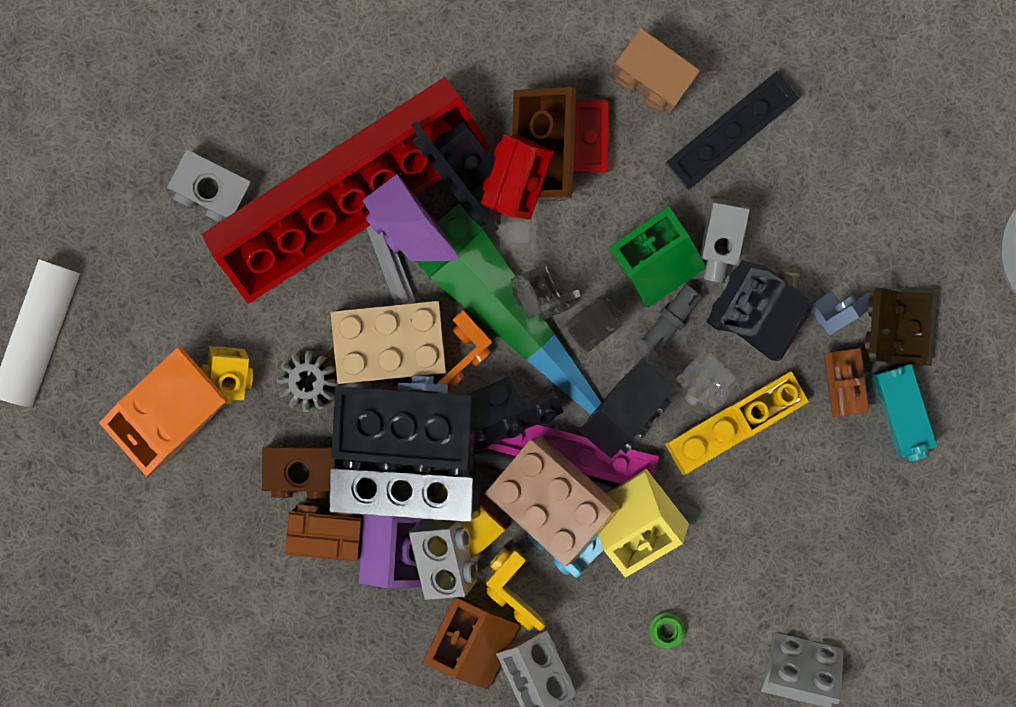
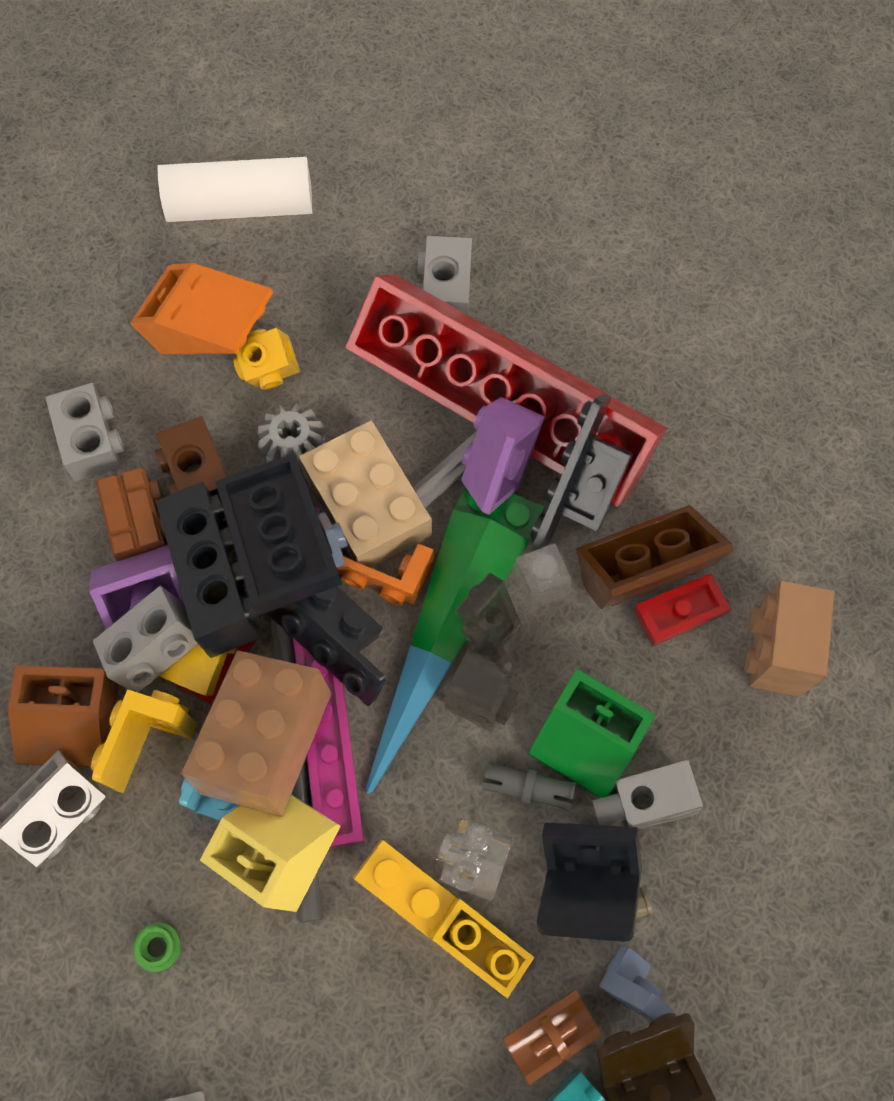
camera: 70 degrees right, 20 degrees down
(227, 557) = (79, 434): none -> light grey brick
(516, 176) = (603, 535): red brick -> none
(628, 410) = (402, 771): black brick -> none
(732, 130) = (773, 761): black plate -> none

